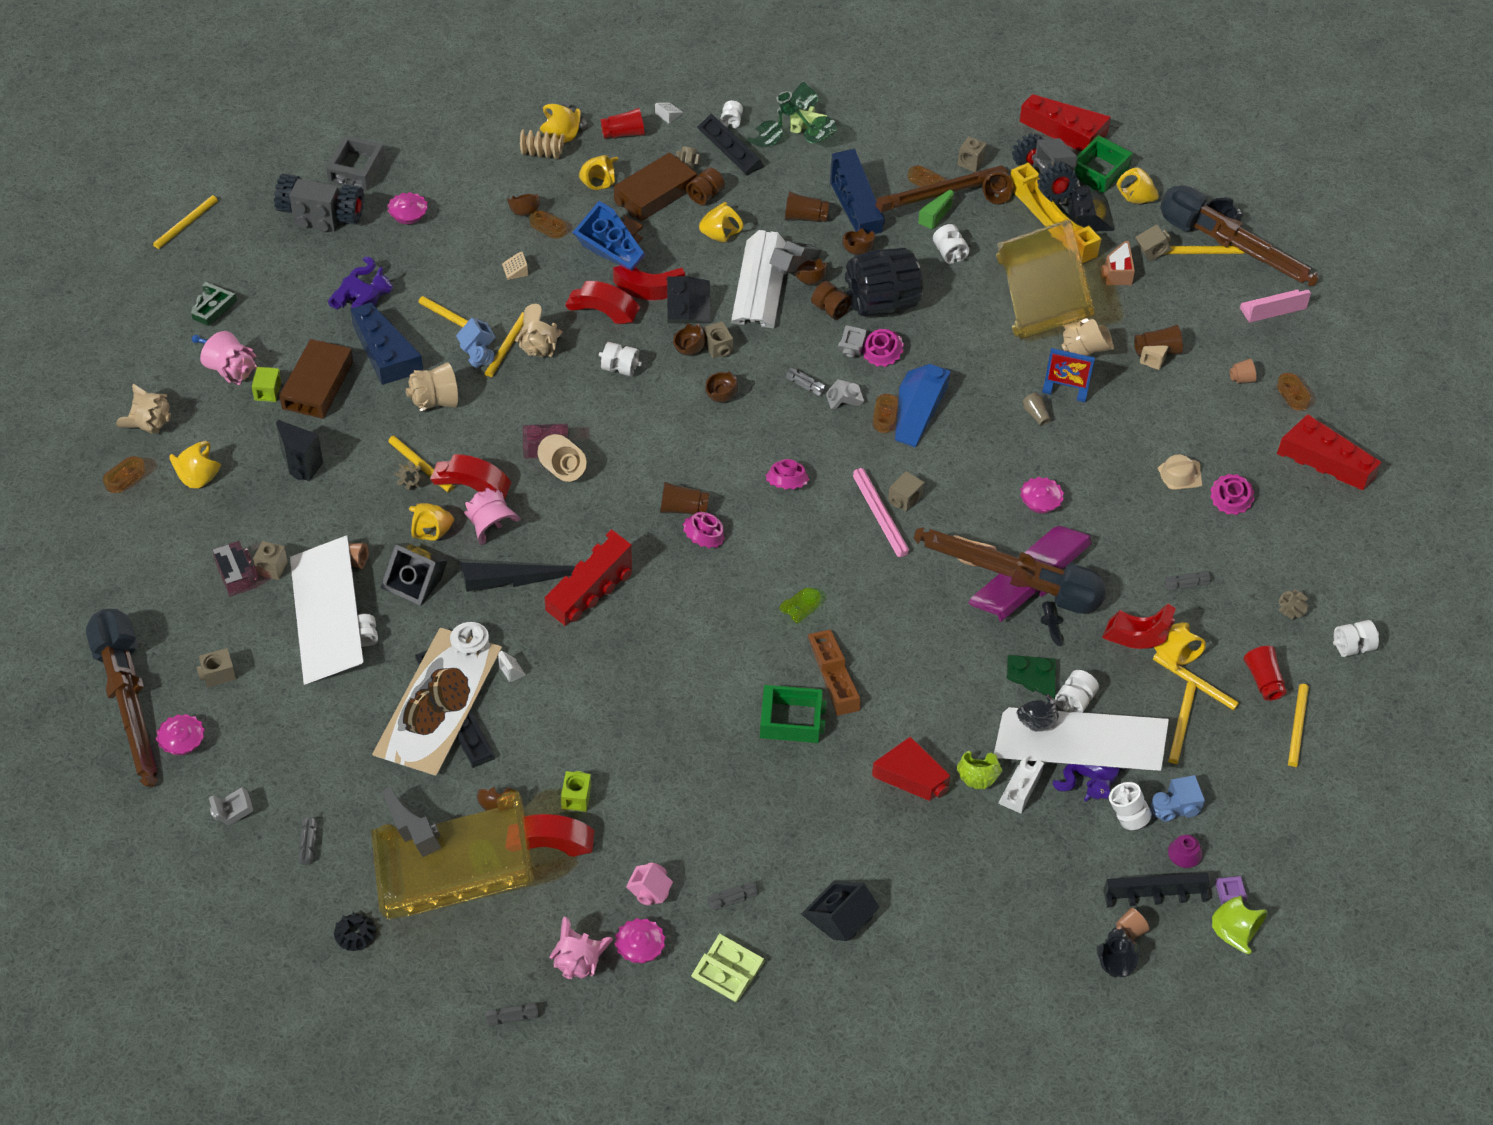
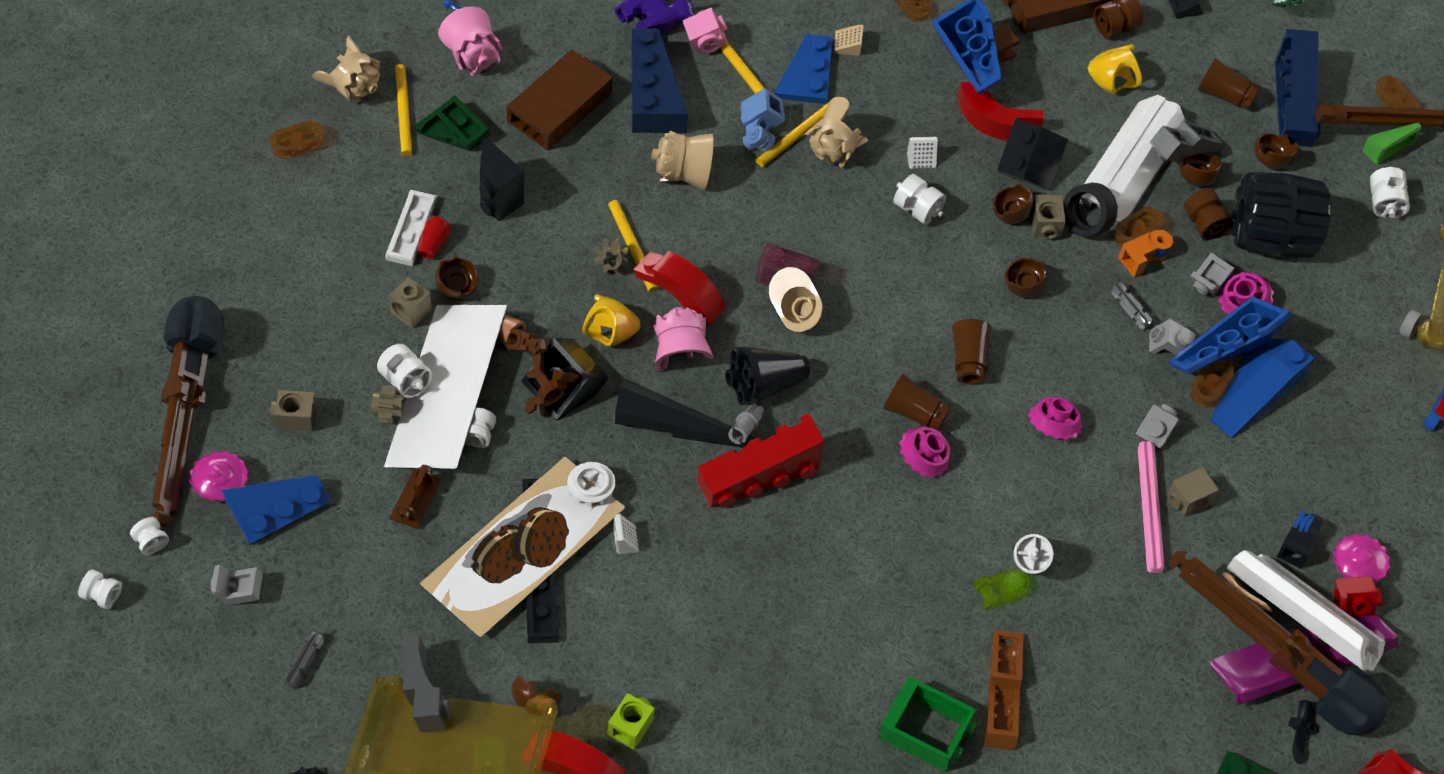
camera: 20 degrees right, 5 degrees up
(124, 848) = (100, 589): none -> white wheel
(145, 796) = (149, 536): none -> white wheel
(195, 467) = (376, 159): yellow piece -> none
(197, 426) = (403, 110): none -> yellow bar
(232, 740) = (271, 505): none -> blue wing
(234, 568) = (367, 297): brick -> none
(243, 424) = (453, 125): none -> dark green wing
(244, 508) = (410, 227): none -> white tile
(265, 508) = (434, 235): none -> red cone
(266, 384) = (500, 86): lime brick -> none
(287, 638) = (387, 404): none -> dark tan gear
(289, 609) = (404, 370): none -> white wheel
(298, 531) = (456, 274): none -> reddish brown hair
(339, 696) = (416, 497): none -> reddish brown hinge
(406, 293) = (706, 31): none -> bright pink brick
(409, 583) = (550, 390): none -> reddish brown piece
(495, 298) = (808, 71): none -> blue wing
(560, 517) = (763, 372): none -> black cone
(565, 557) = (746, 423): none -> light grey axle
(605, 298) = (934, 118): red arch -> none
(606, 326) = (922, 152): none -> white slope
(705, 450) = (971, 350): none -> reddish brown plant
(760, 316) = (1107, 204): none -> black tyre
(782, 329) = (1135, 224): none -> clear orange plate
(797, 339) = (1145, 249): none -> orange leg
(814, 571) = (1033, 553): none -> white wheel
(861, 454) = (1158, 425): none -> light grey bracket
(889, 372) = (1237, 333): none -> blue wedge
(994, 496) = (1300, 538): none -> black leg
(1004, 327) = (1410, 323): none -> light grey tile
(1020, 538) = (1309, 608): none -> white piece
(1036, 408) = (1405, 443): dark tan cone -> none
(1049, 520) = (1357, 596): none -> red brick

